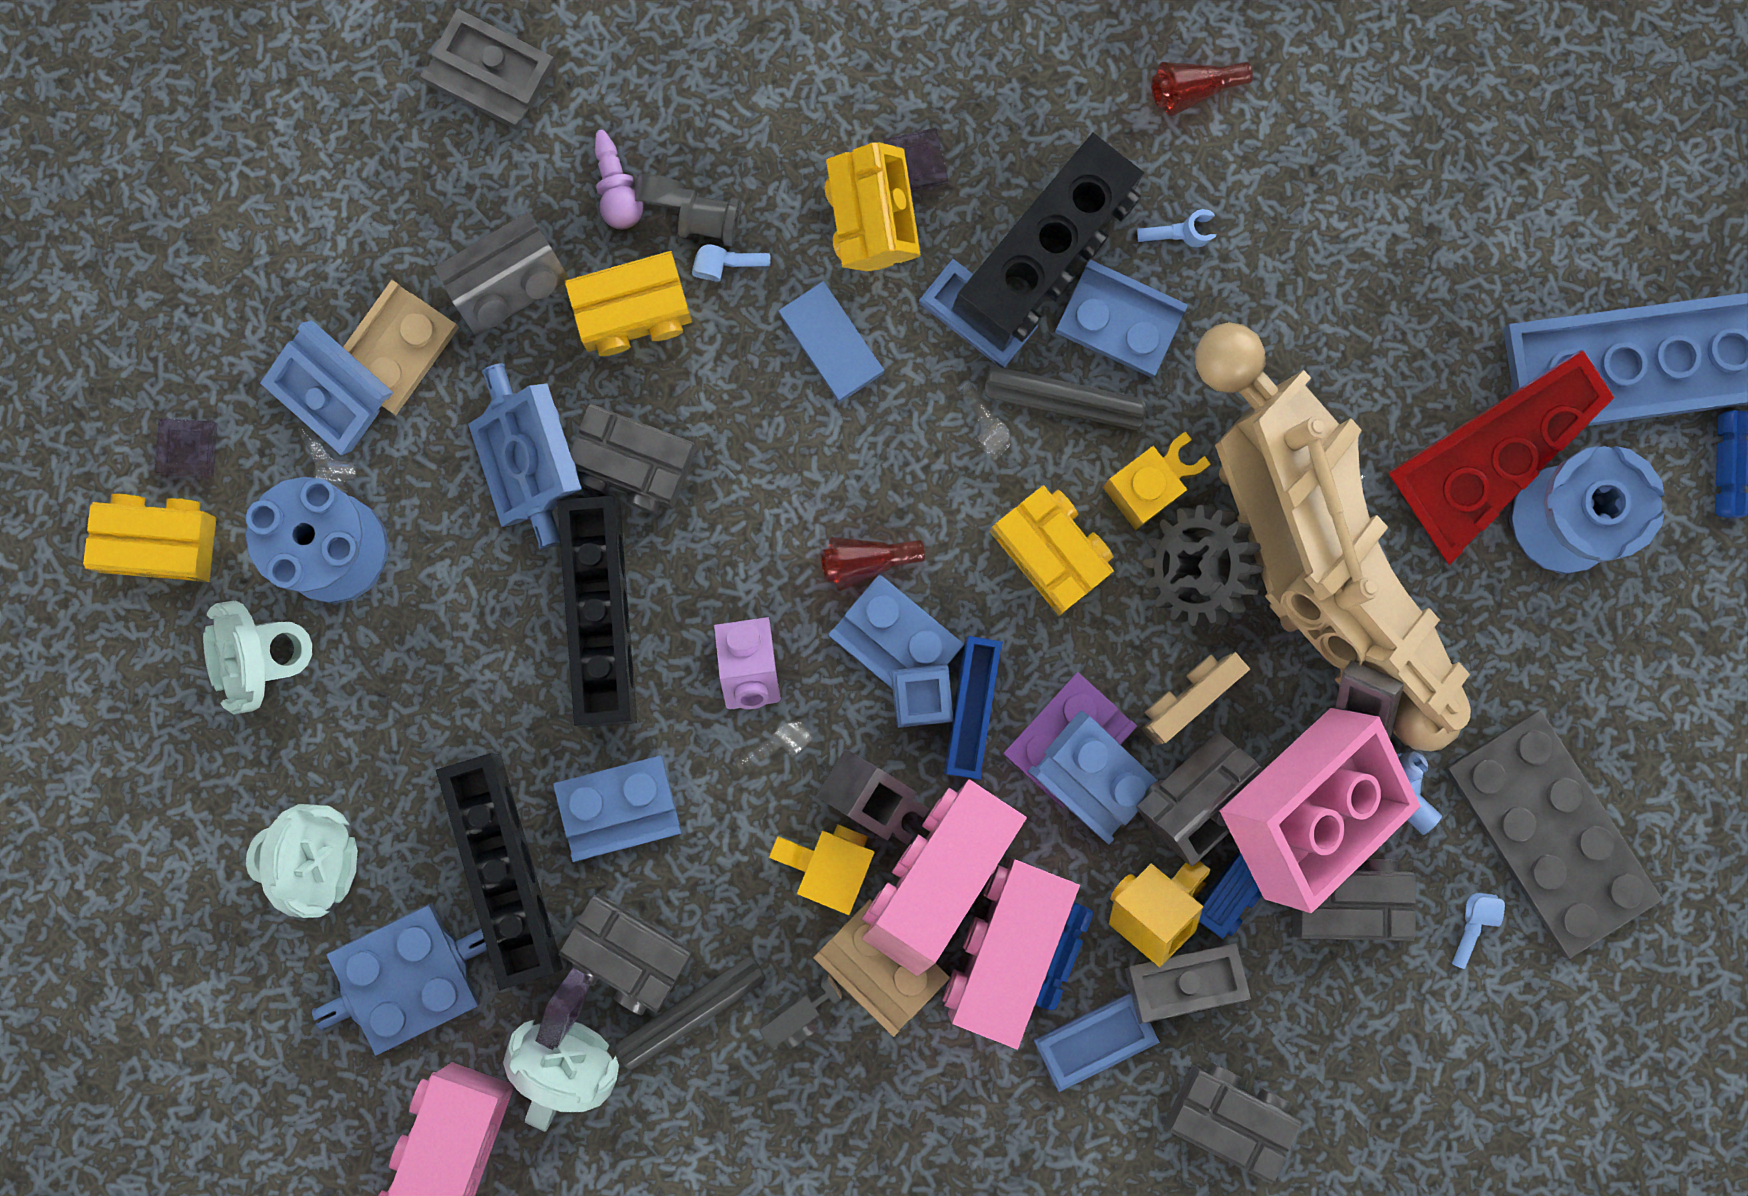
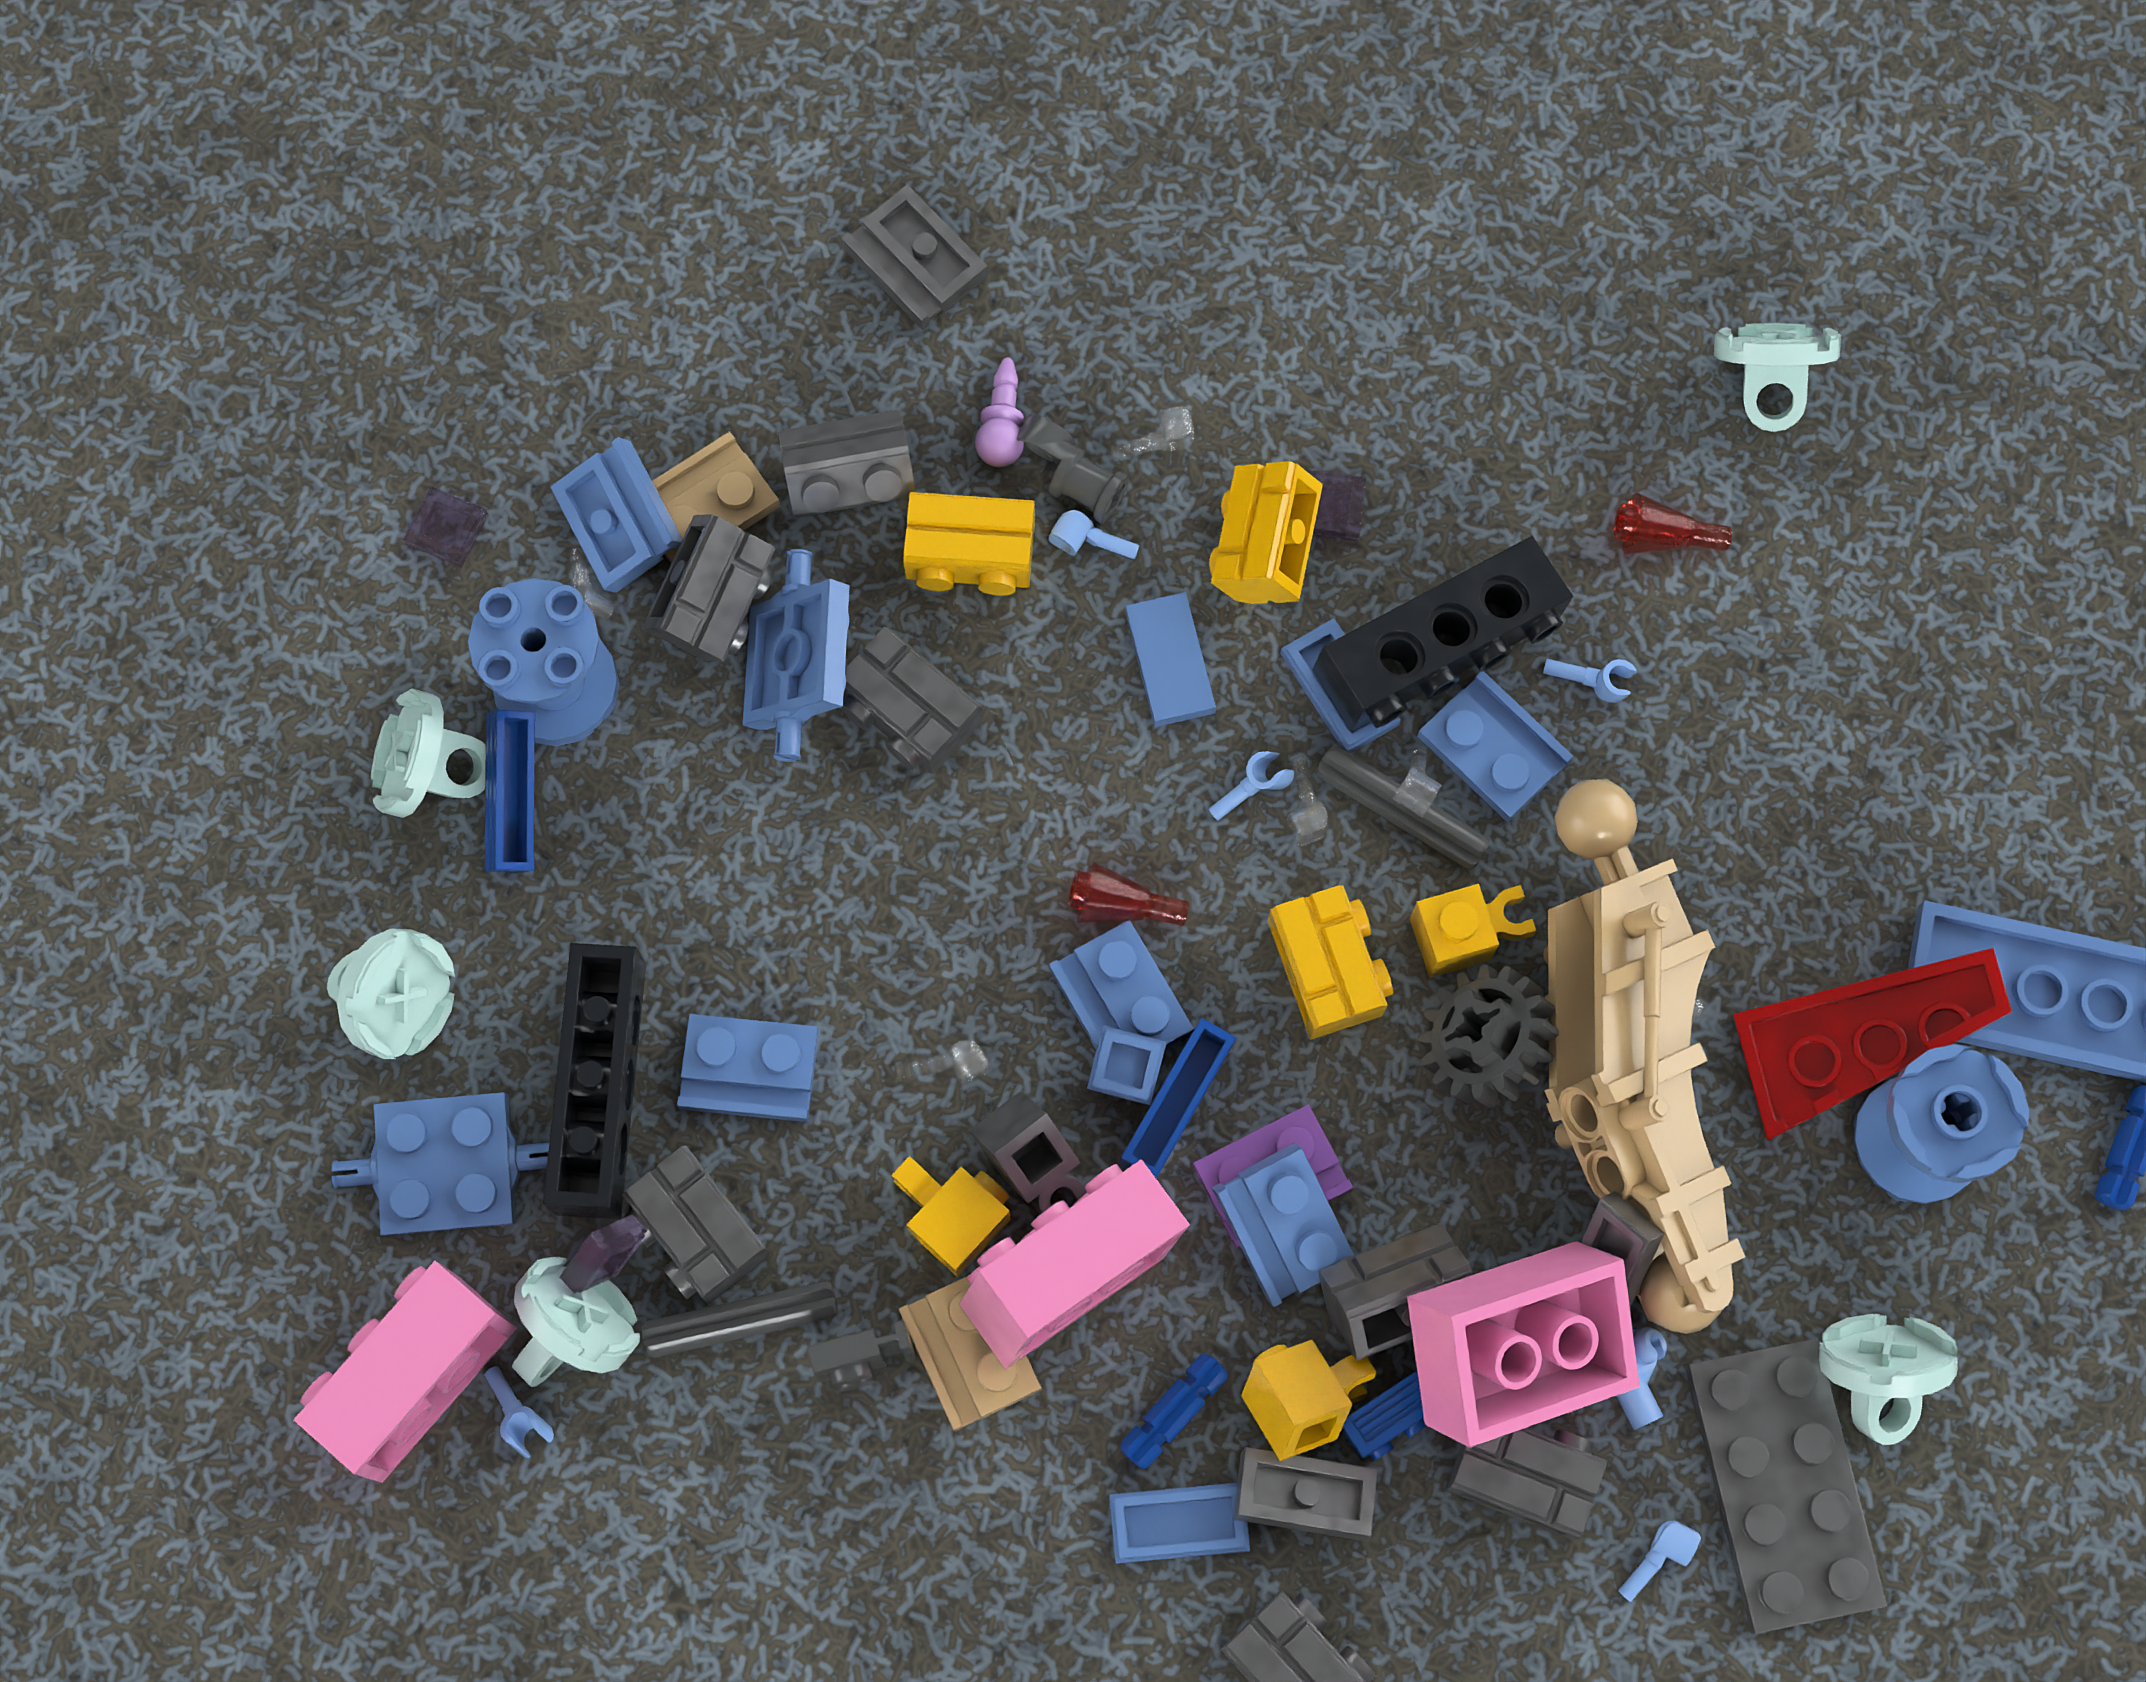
camera: 25 degrees right, 10 degrees down
(150, 540) = (370, 605): yellow brick -> none
(332, 657) = (509, 791): none -> blue piece
(431, 424) = (711, 589): none -> flat silver brick
(543, 1158) = (517, 1418): none -> light blue hand
(597, 612) = (808, 847): black brick -> none
(747, 663) = (948, 964): lavender bracket -> none
(763, 146) = (1174, 435): none -> clear hand
(937, 422) = (1252, 783): none -> light blue hand
(1009, 951) = (1118, 1372): bright pink brick -> none
(1073, 382) = (1417, 789): none -> clear hand
(1208, 681) = (1446, 1168): tan plate -> none
(1605, 715) = (1886, 1364): none -> light aqua tile

